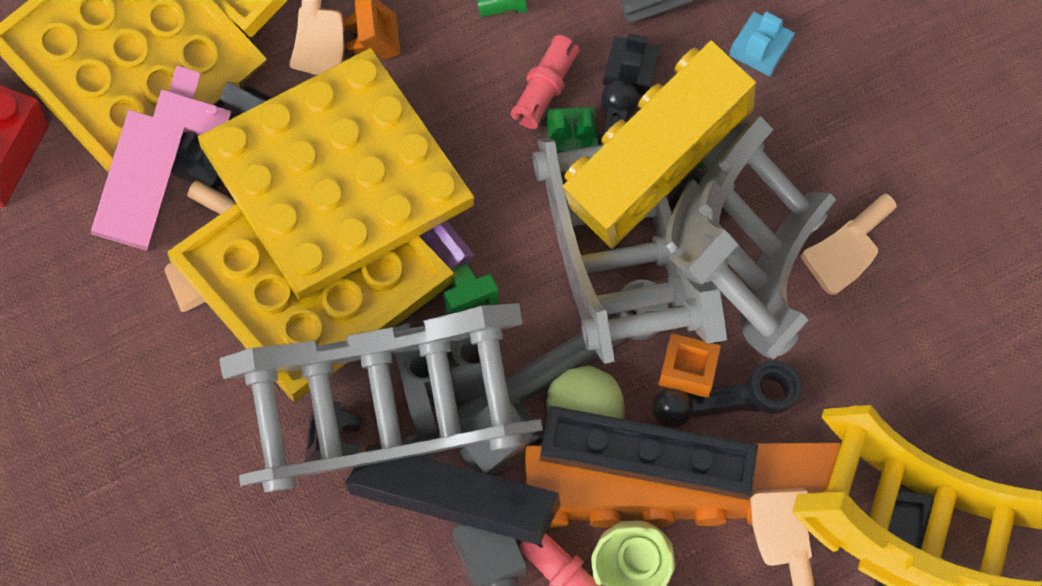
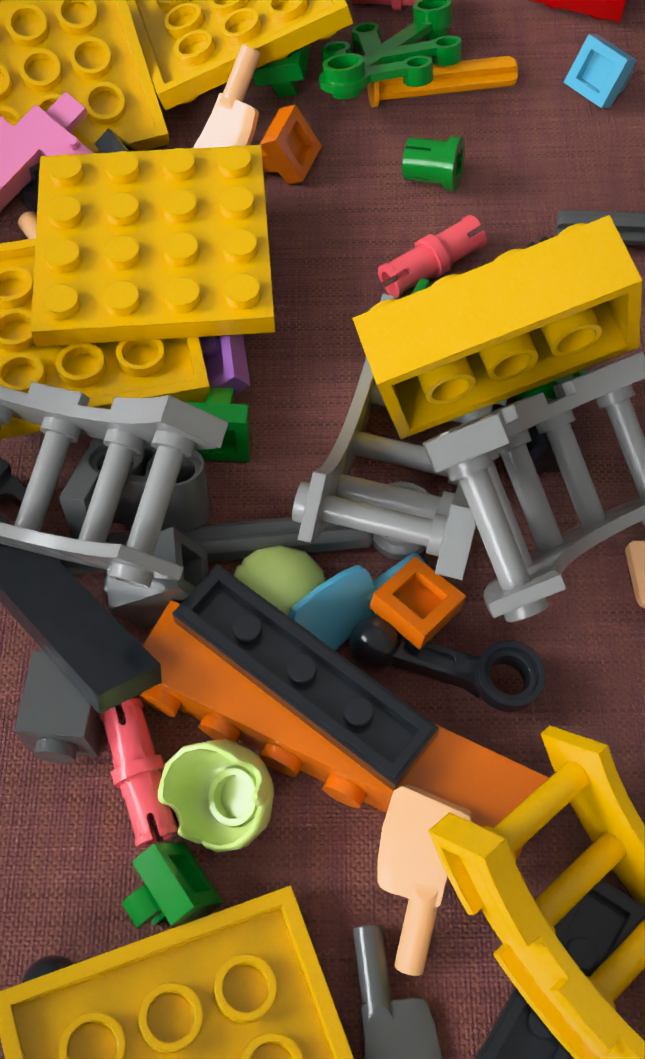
camera: 35 degrees right, 5 degrees down
(641, 383) = (341, 603): none -> medium azure piece

